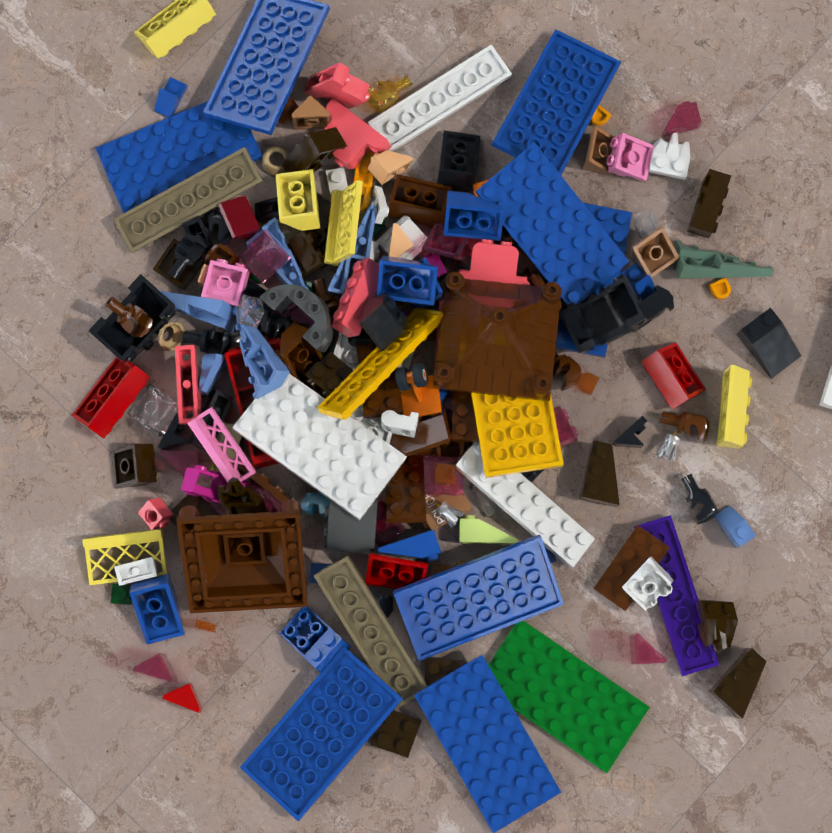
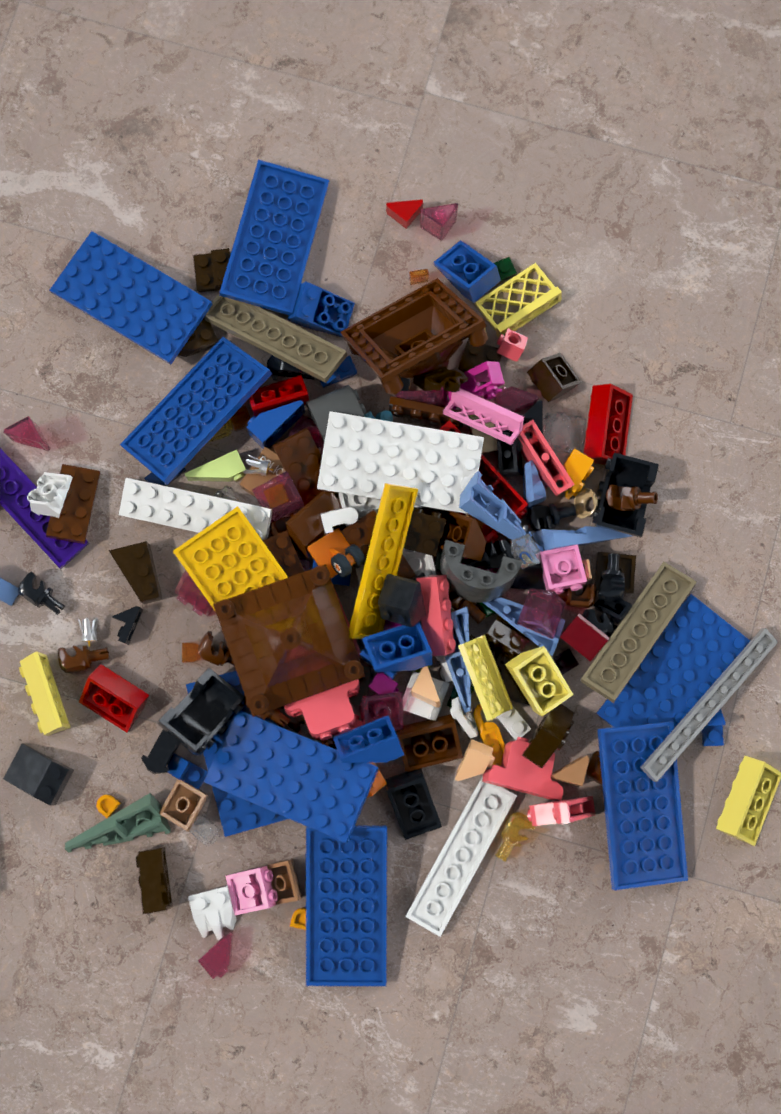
camera: 155 degrees right, 0 degrees up
(136, 570) = (502, 290): white plate -> none
(163, 111) = (708, 705): none -> light grey plate
(163, 366) = (578, 468): none -> light orange slope
(267, 166) = (593, 717): tan piece -> none
(566, 696) = (82, 370): green plate -> none

